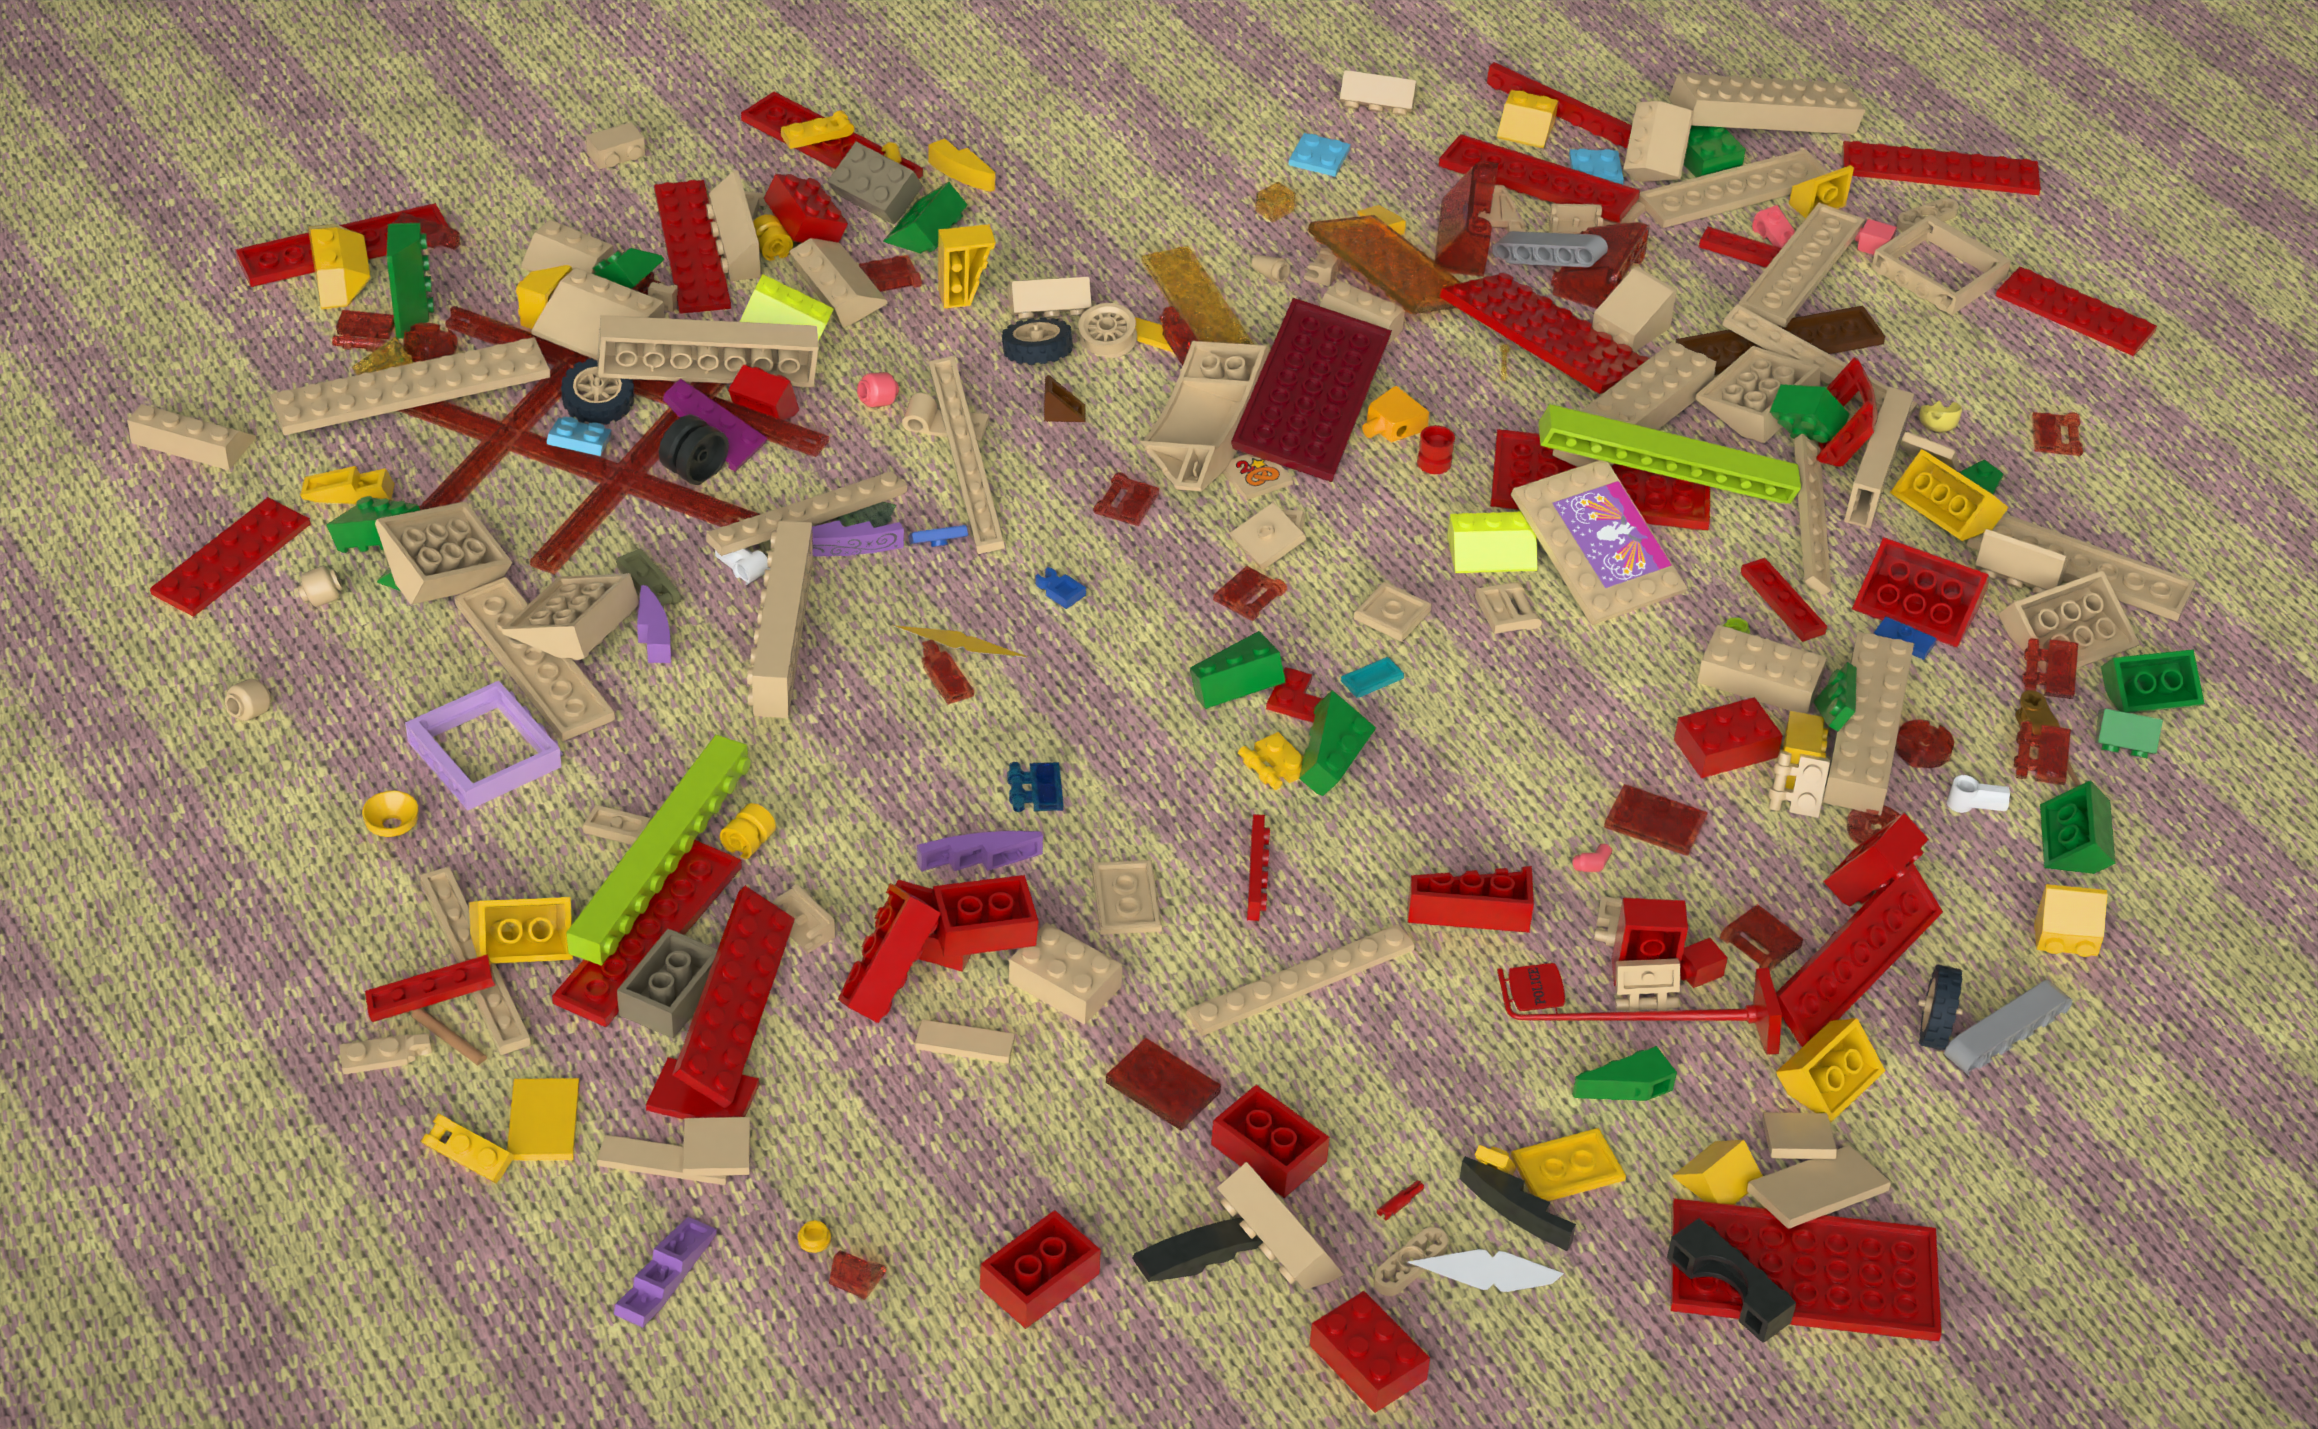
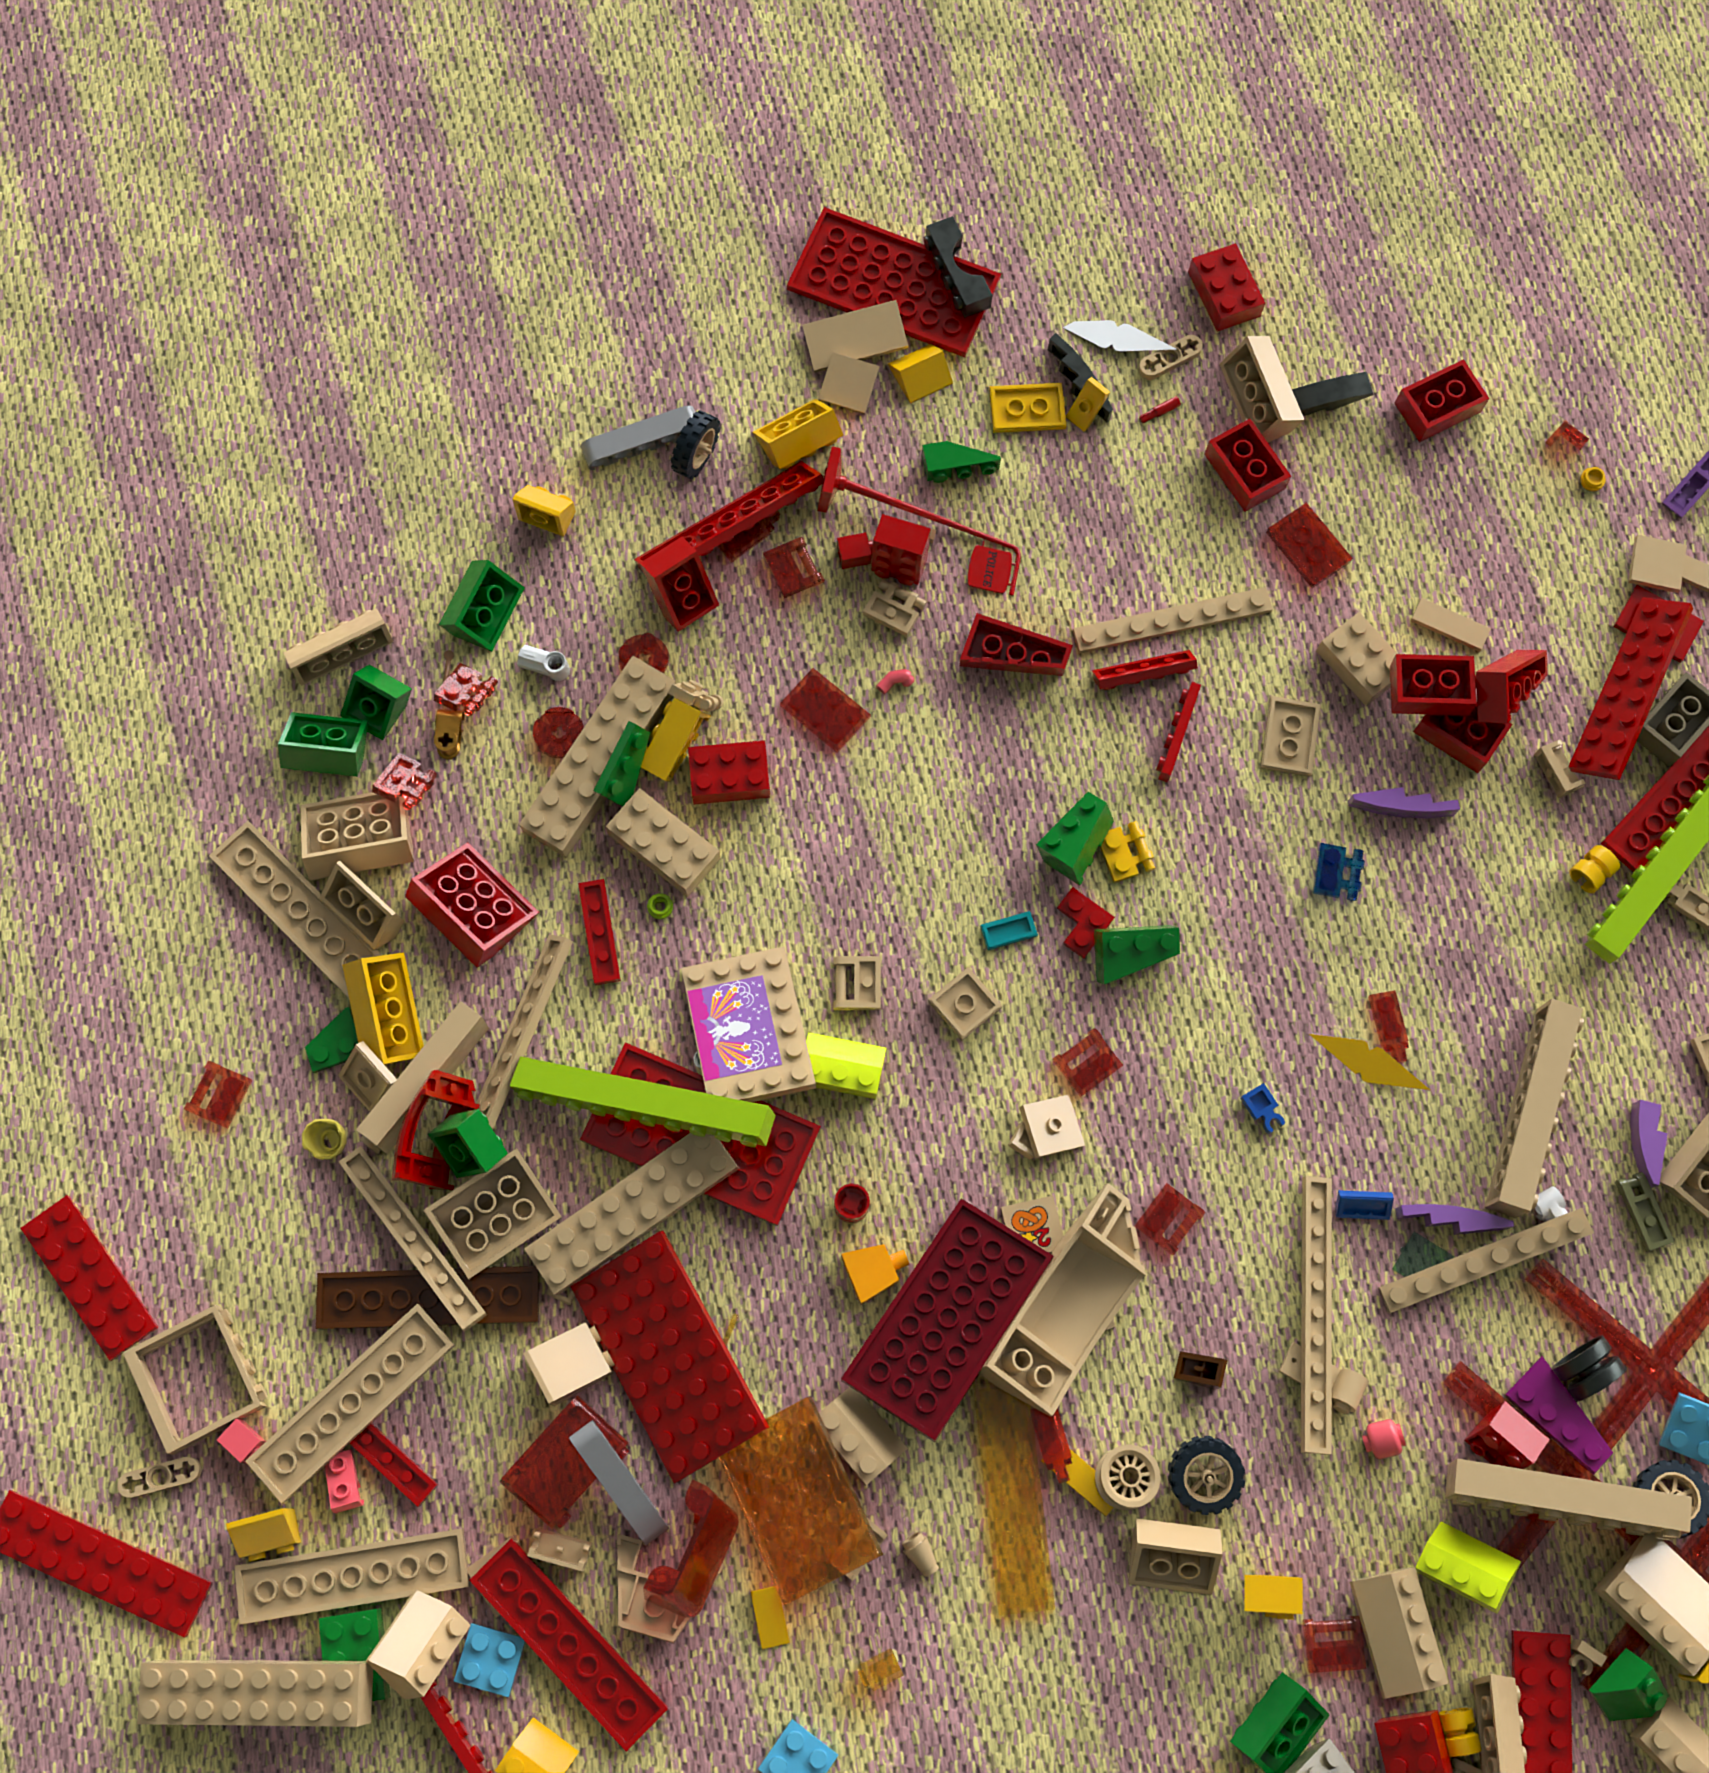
camera: 165 degrees left, 30 degrees up
(1317, 918) = (1136, 671): none -> red plate
(1895, 630) = (510, 862): blue plate -> none
(2200, 758) = (338, 646): none -> tan slope

